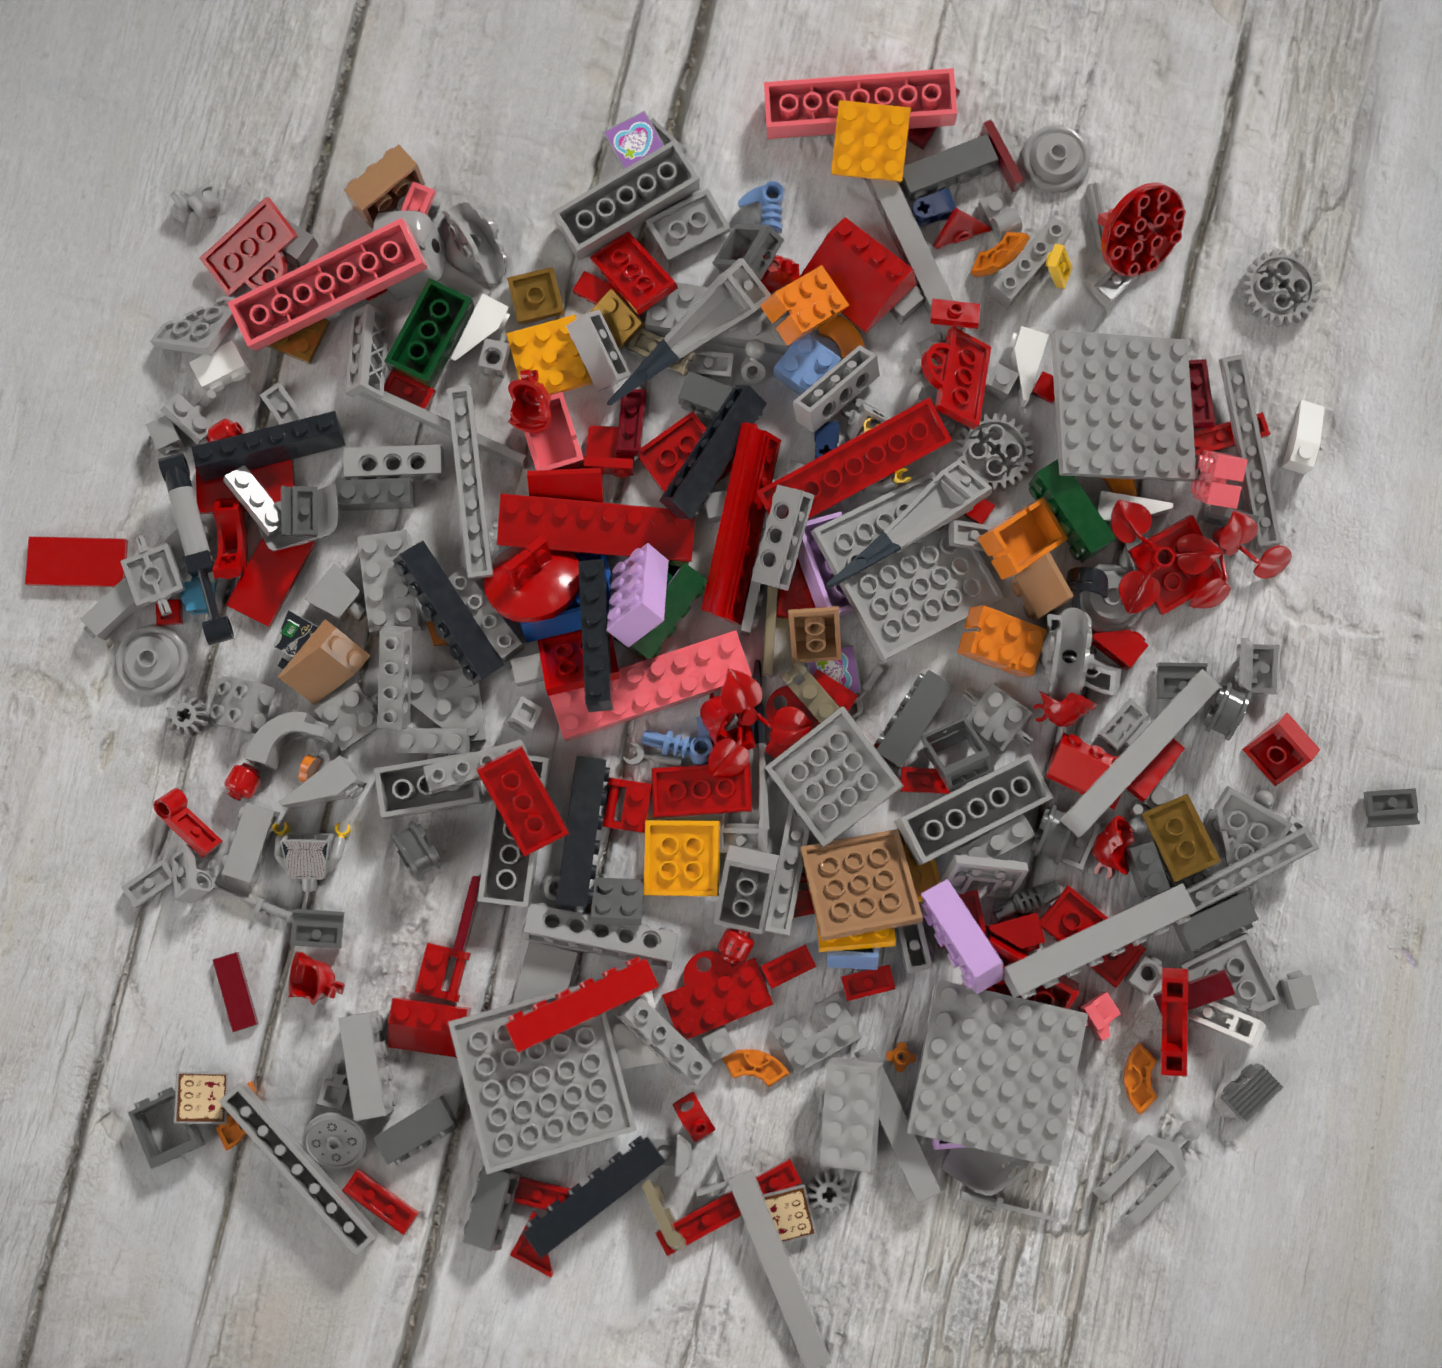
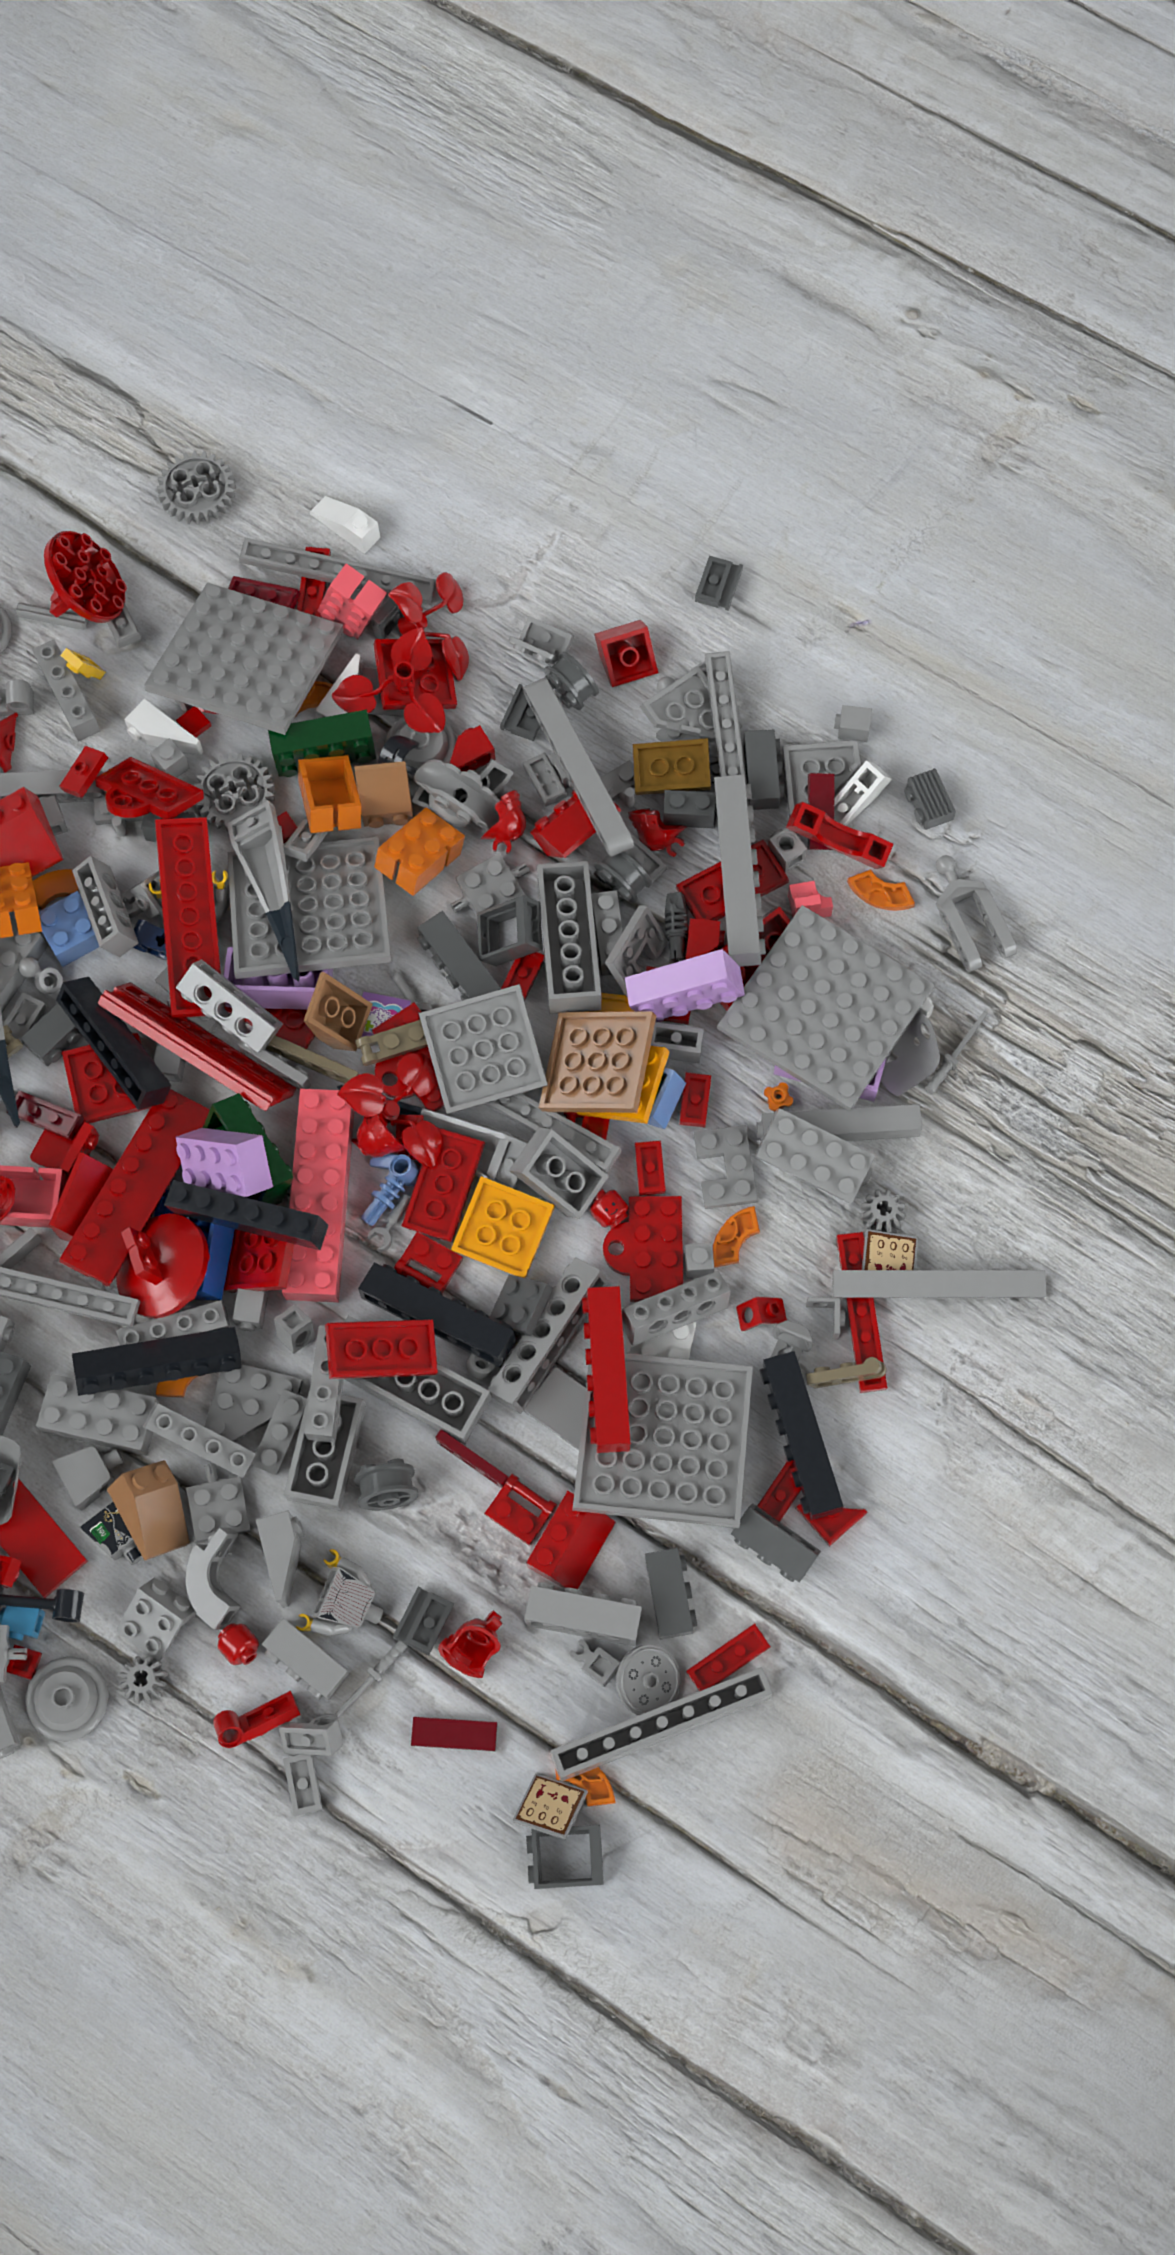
camera: 65 degrees left, 10 degrees down
(308, 767) = (254, 1570): orange tile -> none
(1000, 255) = (46, 713): orange tile -> none
(1155, 770) = (602, 765): red tile -> none

